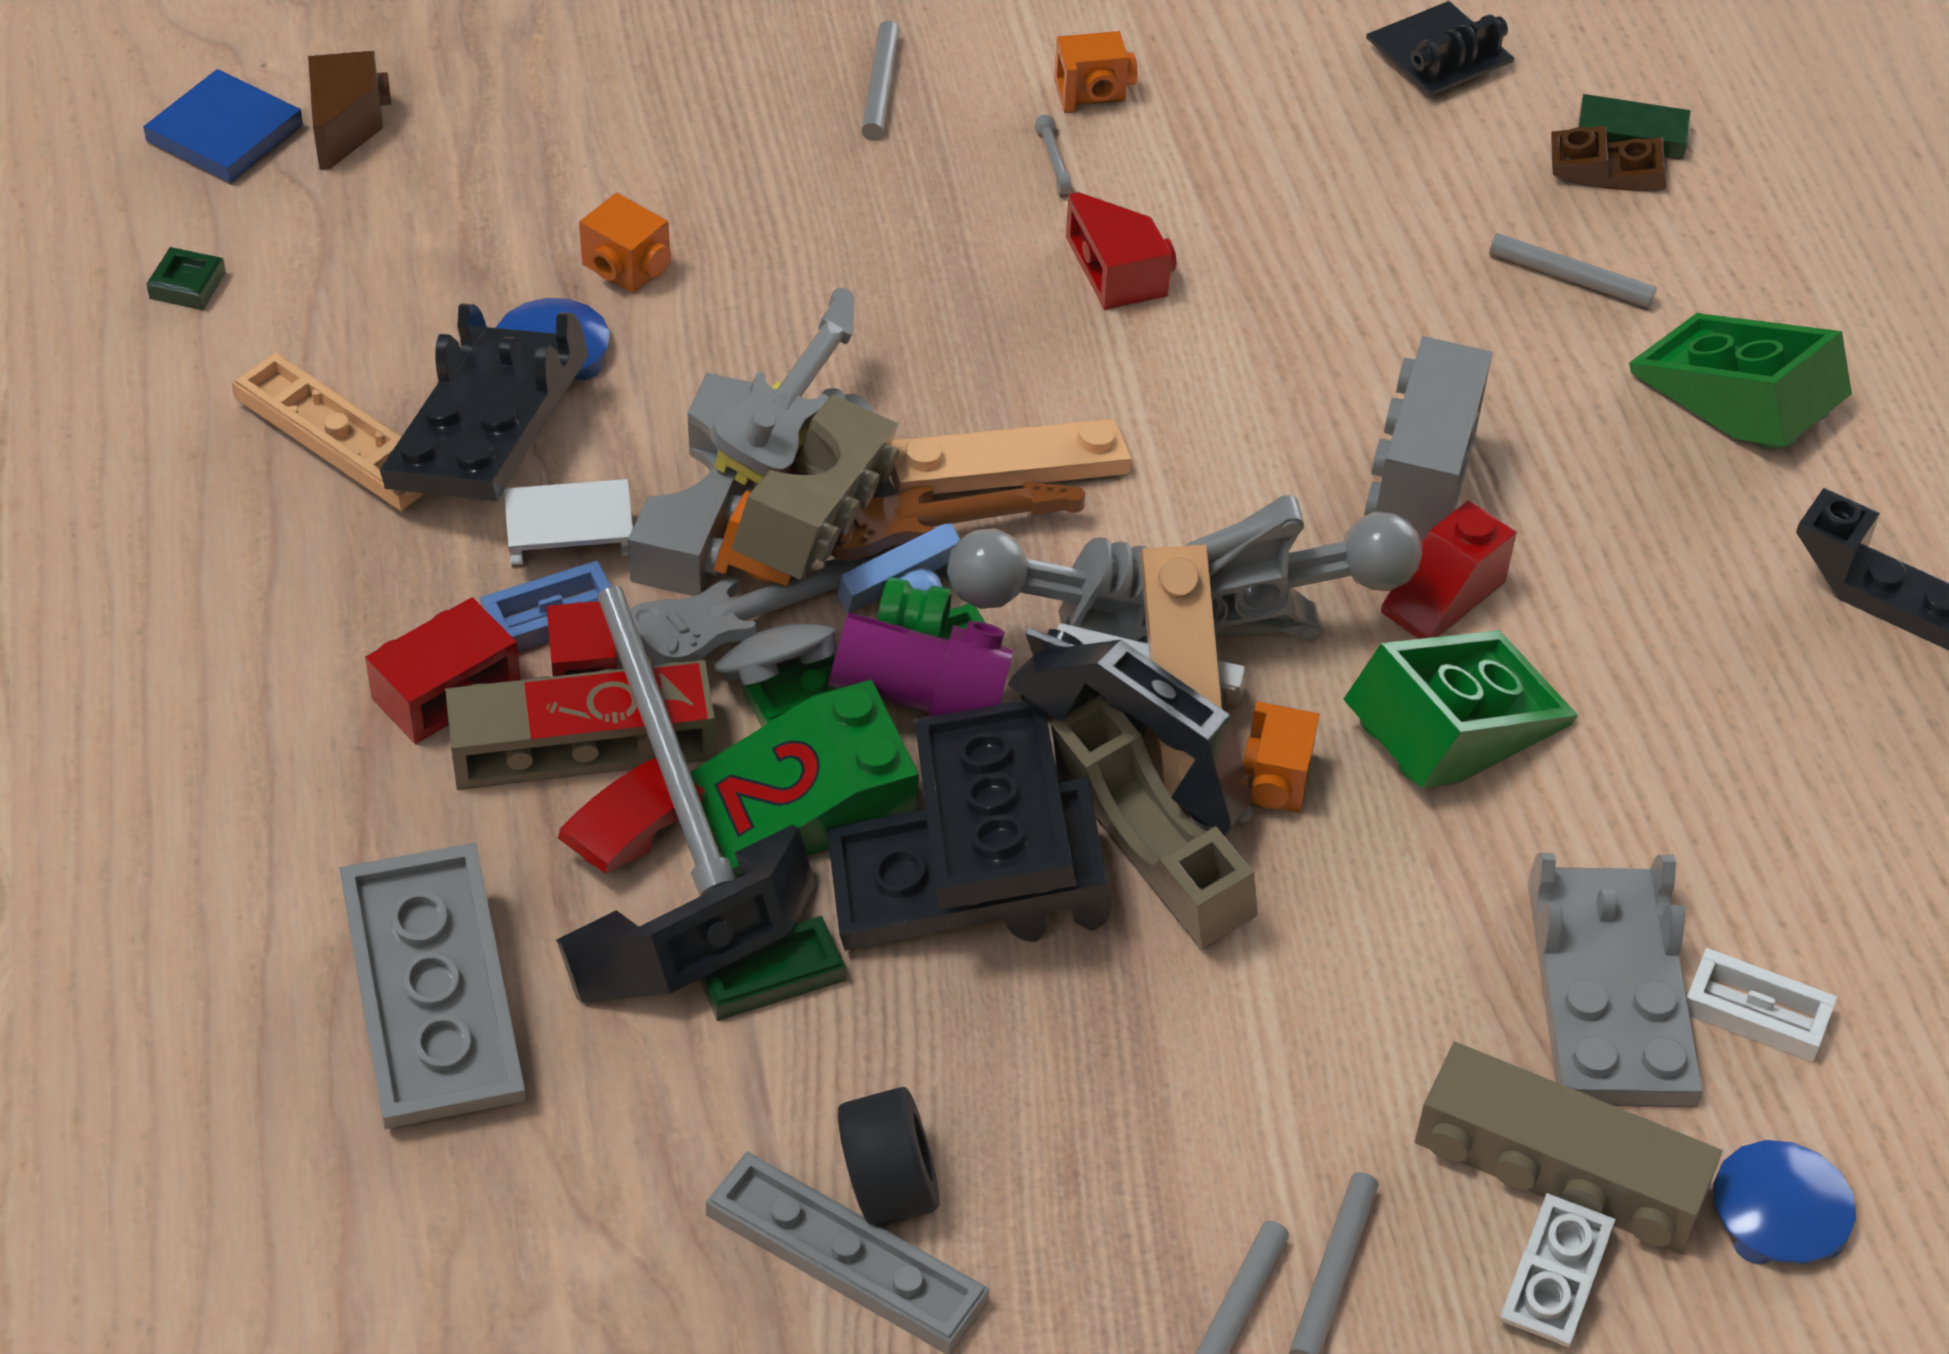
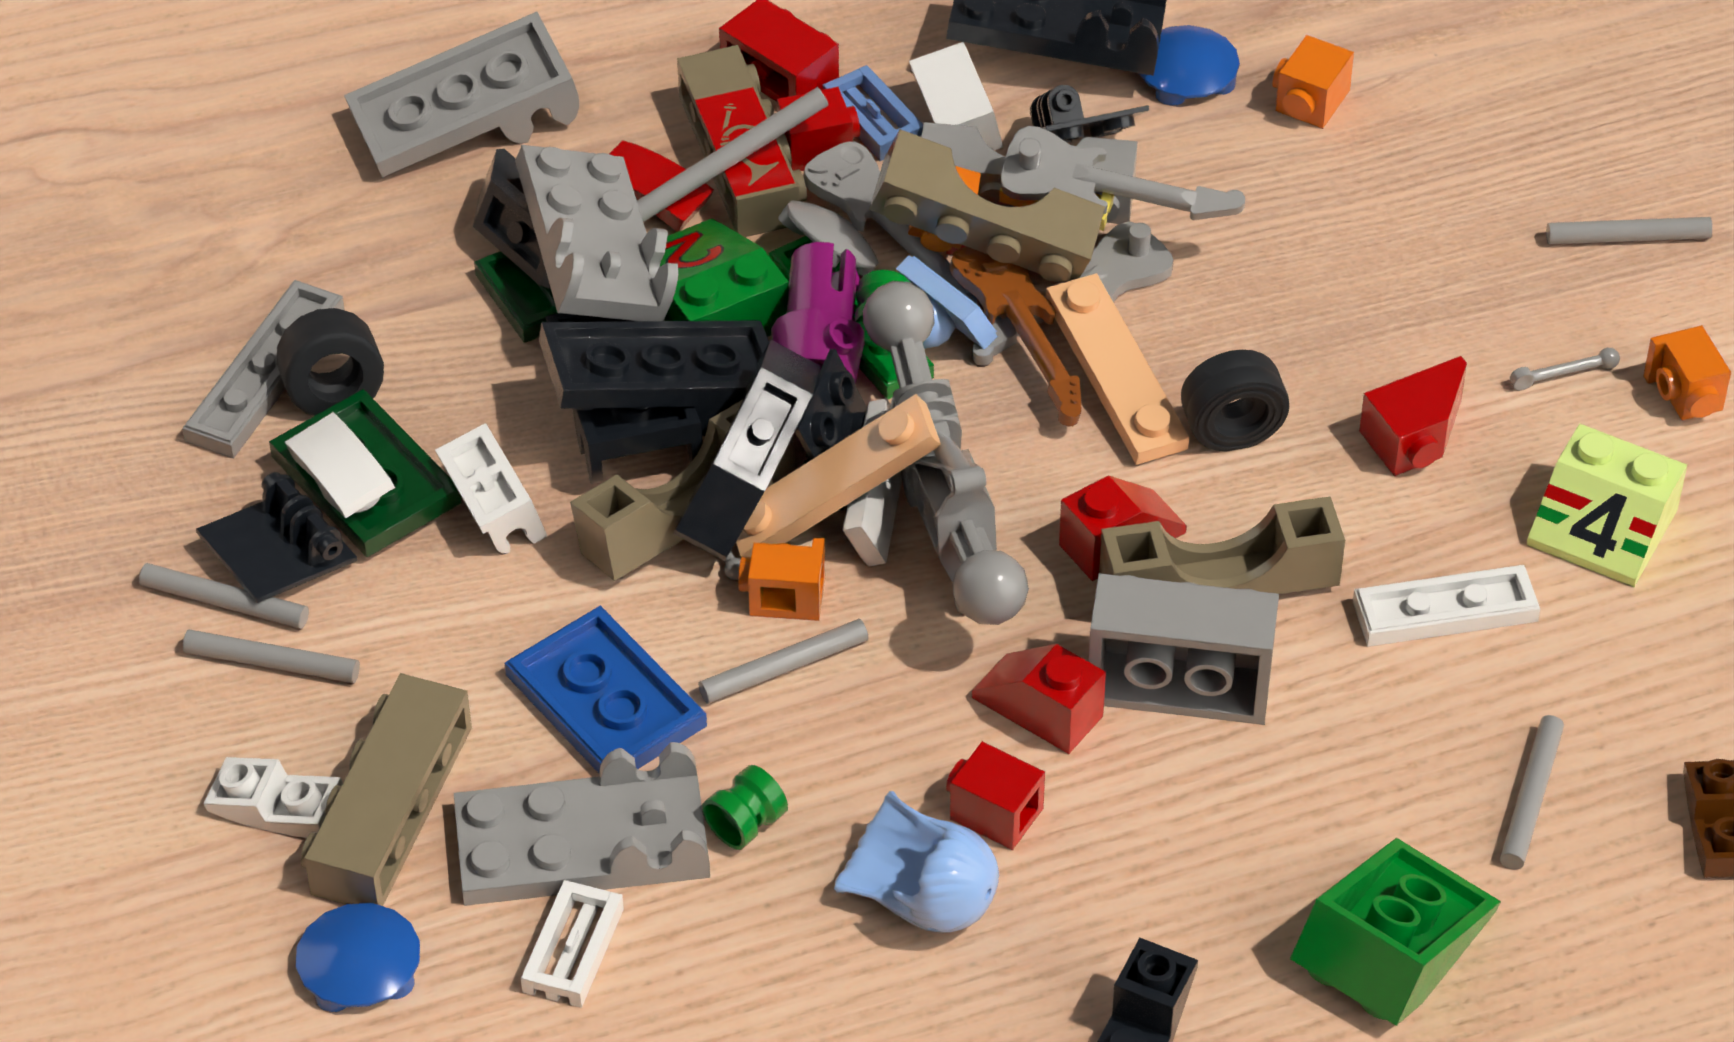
camera: 85 degrees right, 0 degrees up
(651, 419) = (1062, 114): none -> black hinge
(772, 842) = (595, 236): none -> light grey hinge
(1059, 1144) = (420, 484): none -> dark green plate
(1089, 1139) = (340, 465): none -> white slope
(1094, 363) = (1229, 377): none -> black tyre
(1117, 1004) = (490, 487): none -> white hinge
(1165, 1243) = (276, 541): none -> black hinge
(1230, 482) = (1109, 505): none -> red slope
(1249, 150) = (1607, 505): none -> yellowish green slope
(1306, 446) = (1286, 552): none -> dark tan arch
(1345, 286) = (1446, 605): none -> white tile
(1379, 785) = (783, 661): none -> light grey bar
(1413, 946) = (605, 691): none -> blue tile
(1455, 704) = (879, 703): green slope -> none
(1584, 625) = (996, 794): none -> red brick
(1595, 827) = (745, 807): none -> green wheel
(1691, 687) = (922, 868): none -> light blue piece

